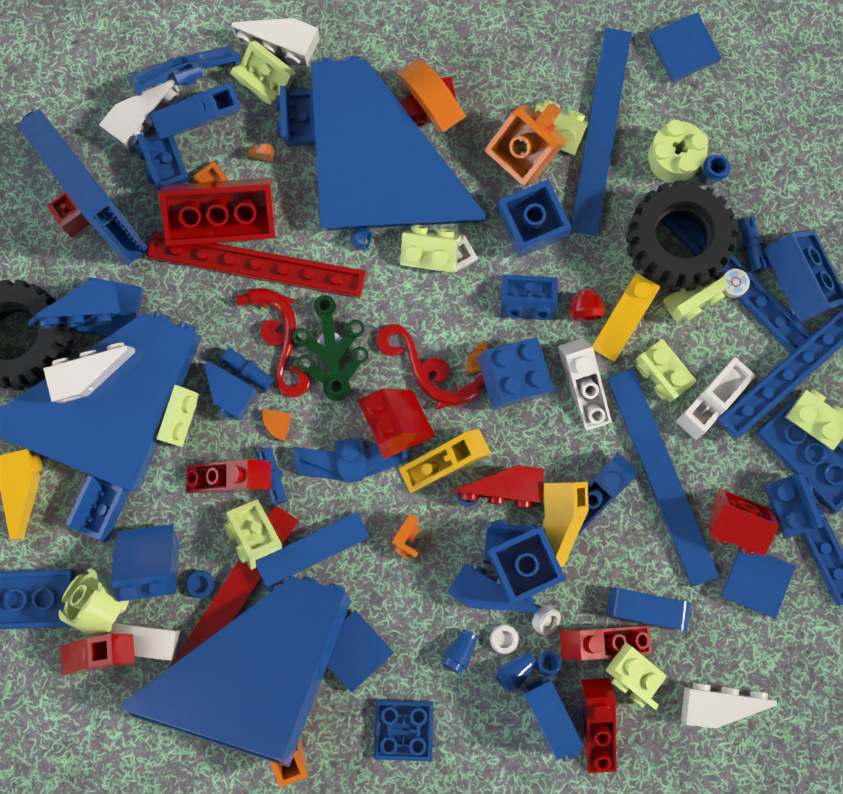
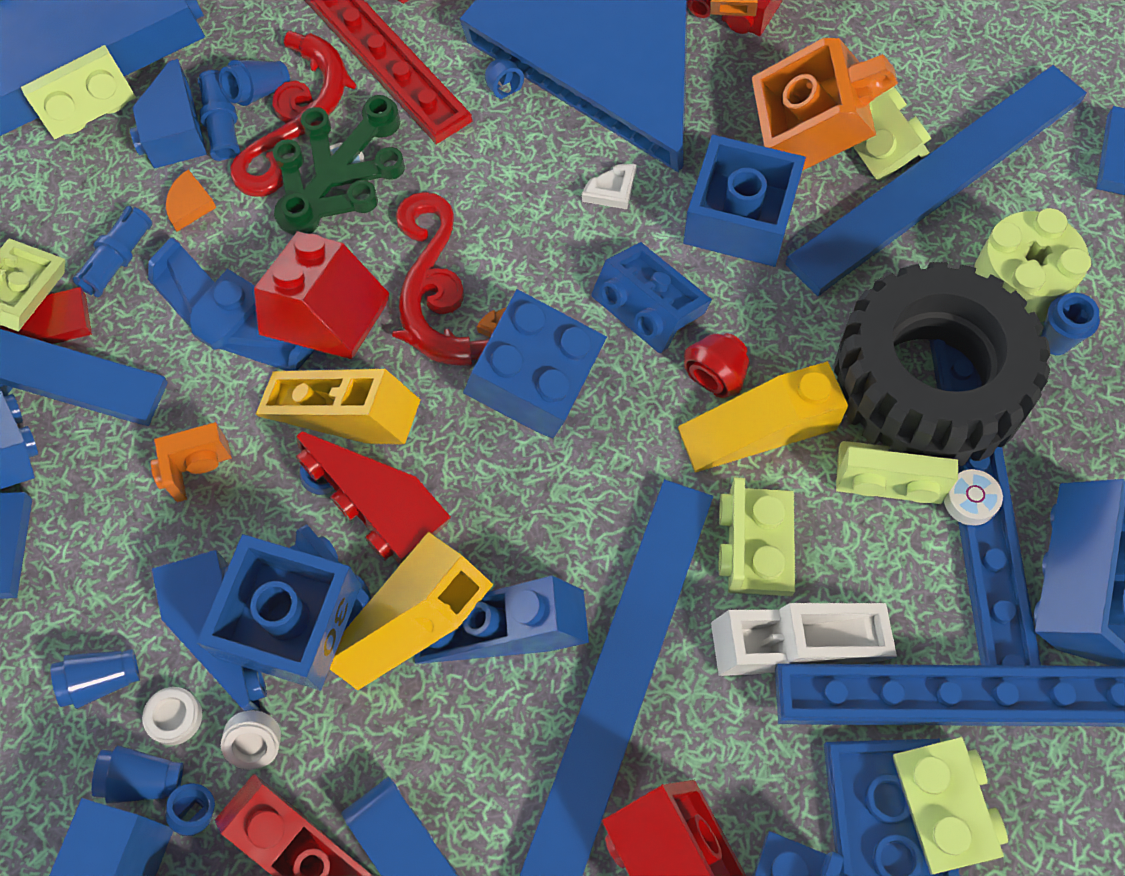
camera: 45 degrees right, 15 degrees down
(229, 476) = (64, 207): red slope -> none
(248, 340) = (251, 80): none -> blue cone
(429, 248) = (571, 143): yellowish green bracket -> none
(585, 383) = (622, 463): white slope -> none
(752, 244) = (1047, 471): blue pin -> none

